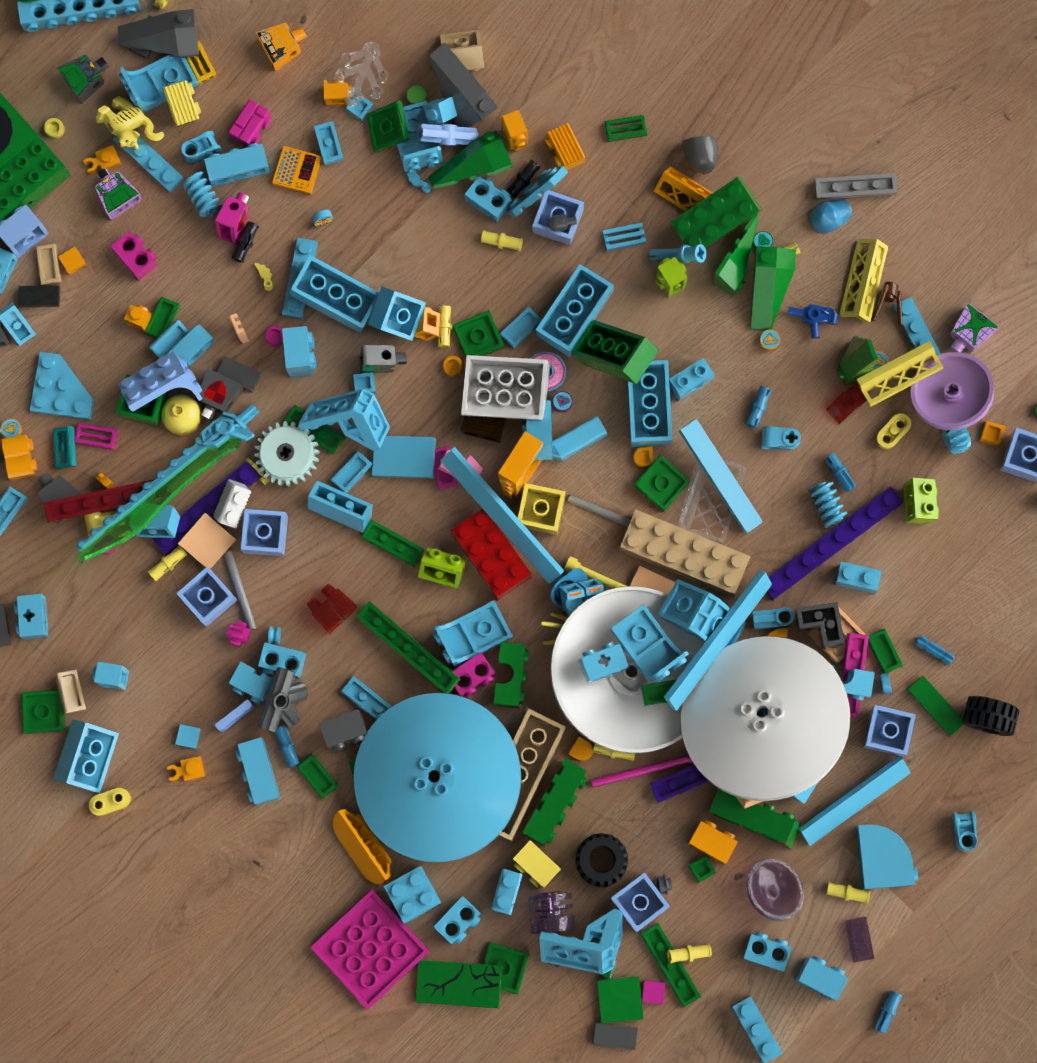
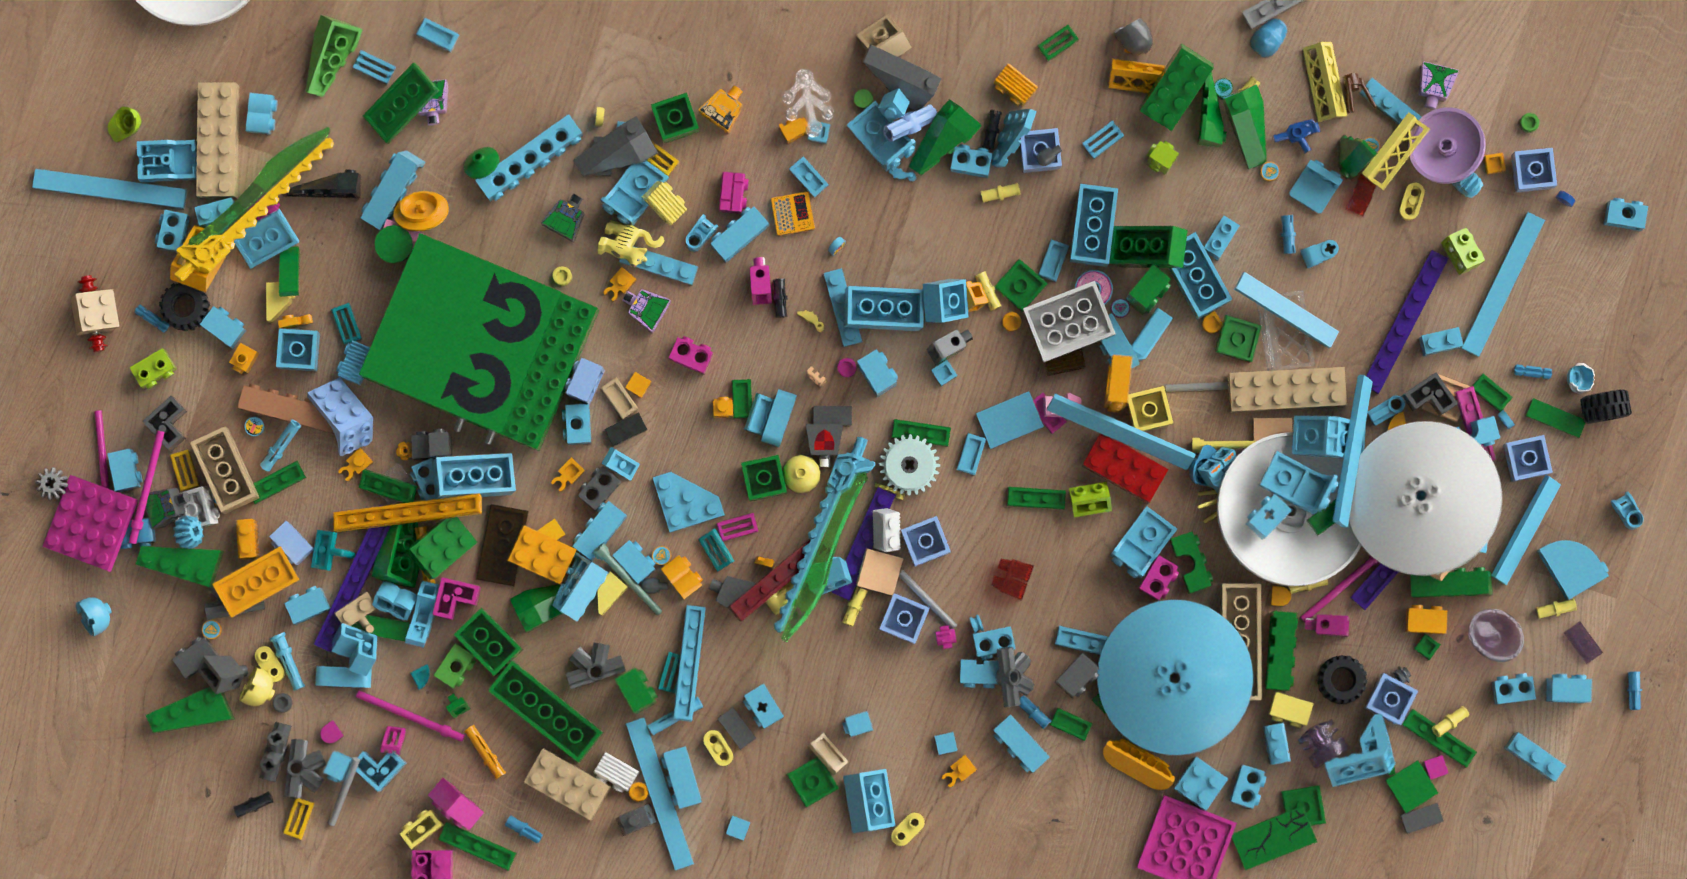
camera: 30 degrees left, 5 degrees up
(158, 378) = (774, 456): light blue bracket -> none
(200, 196) = (723, 275): medium azure piece -> none
(231, 30) = (675, 118): none -> green brick
(234, 716) = (977, 707): light blue tile -> none
(340, 506) = (978, 488): medium azure brick -> none
(361, 405) = (943, 403): medium azure bracket -> none
(387, 126) = (853, 139): green tile -> none
(408, 647) = (1095, 580): green plate -> none
(514, 130) = (966, 92): light orange brick -> none
(595, 393) = (1145, 293): none -> green brick
(622, 804) = (1338, 625): none -> dark pink torso
(684, 254) = (1166, 133): medium azure pin -> none
(807, 373) = (1316, 186): none -> medium azure bracket
(827, 503) = (1386, 289): medium azure piece -> none
(840, 472) = (1383, 258): dark azure axle -> none
(945, 552) = (1503, 284): none -> medium azure tile
(979, 678) = (1580, 378): none -> medium azure hair

